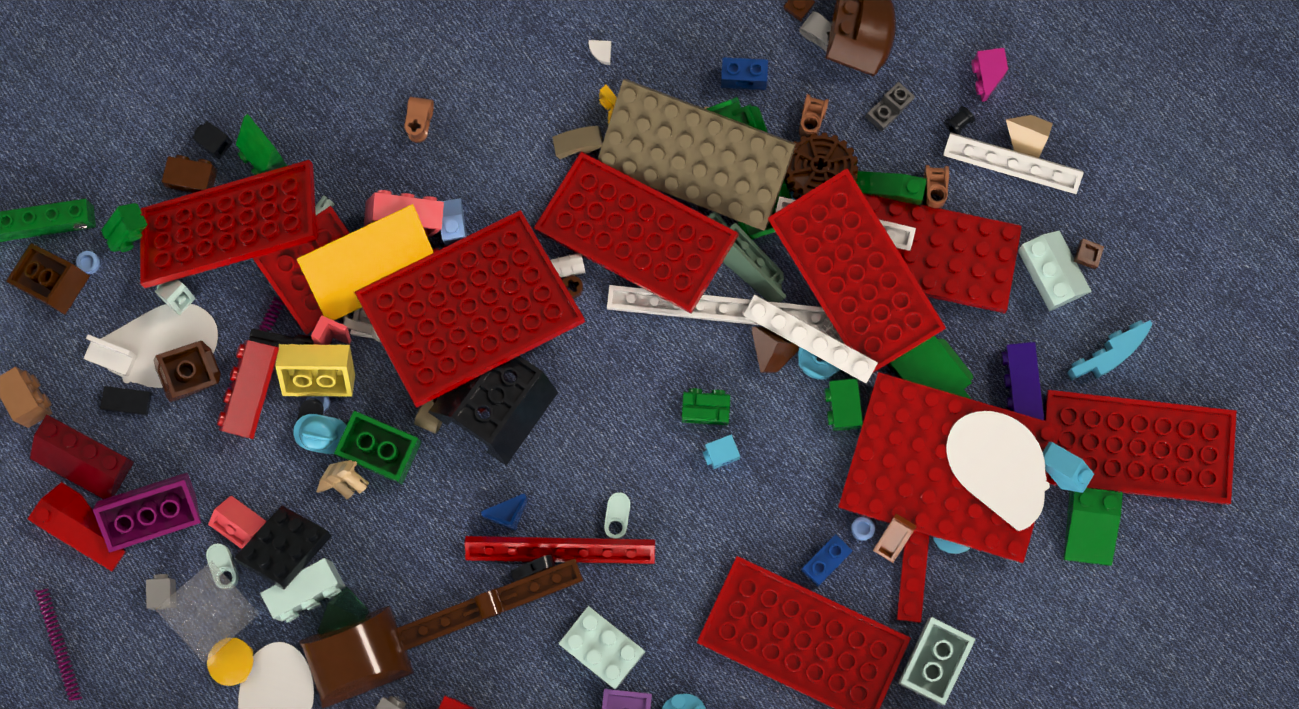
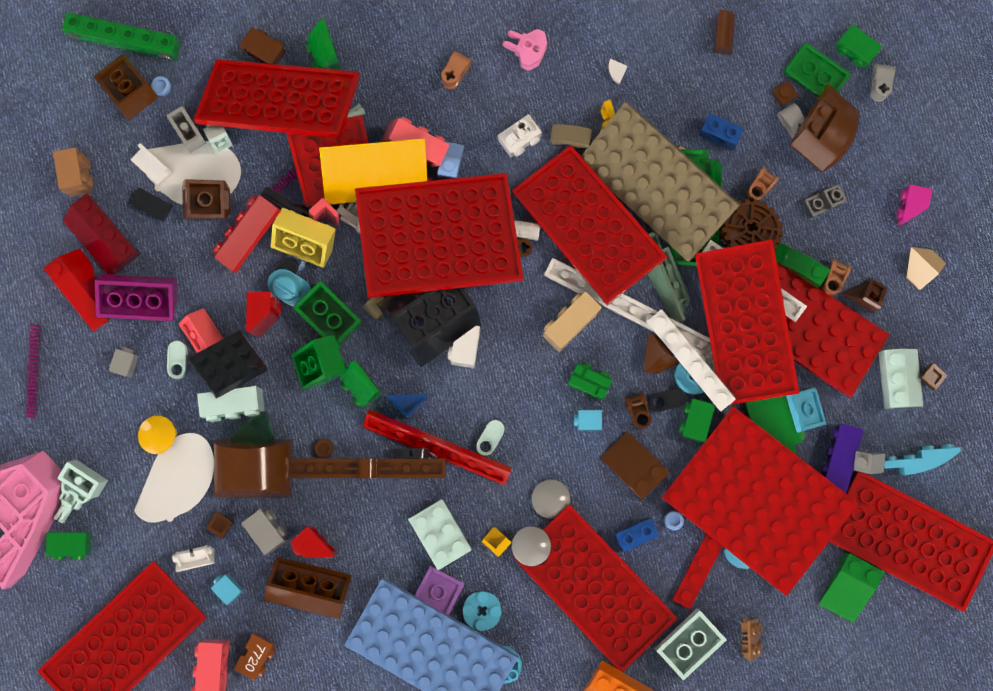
camera: 15 degrees right, 5 degrees up
(124, 227) = (197, 70): green brick -> none
(135, 299) = (186, 129): none -> light grey brick
(207, 611) = (153, 391): clear plate -> none
(212, 139) = (290, 26): black brick -> none
(300, 471) = (262, 312): none -> red slope
(343, 479) = (292, 329): tan connector -> none
(387, 504) = (318, 362): none -> green brick
(430, 602) = (324, 448): none -> reddish brown tile
(444, 511) = (360, 385): none -> green slope
(493, 62) = (527, 46): none -> bright pink hinge
(520, 163) = (519, 136): none -> white brick
(549, 425) = (465, 349): none -> white slope
(658, 347) = (571, 320): none -> tan brick
(669, 631) = (496, 541): none -> yellow panel
(711, 620) = (531, 546): none -> light grey dish
(712, 558) = (550, 498): none -> light grey dish
(770, 416) = (638, 409): none -> reddish brown piece
(793, 483) = (634, 465): none -> reddish brown slope
(806, 392) = (671, 398): none -> black piece
(894, 538) = (695, 538): tile -> none
(959, 120) = (874, 233): black bush -> none
(962, 345) = (806, 410): none -> medium azure tile
(979, 192) = (867, 295): none -> reddish brown slope
(999, 465) = (798, 515): white sticker -> none
(1010, 637) = (753, 648): none -> medium nougat hinge
(1013, 163) = (902, 283): white plate -> none
(1056, 375) = (869, 462): none -> light grey brick
(1066, 468) = (848, 537): medium azure slope -> none

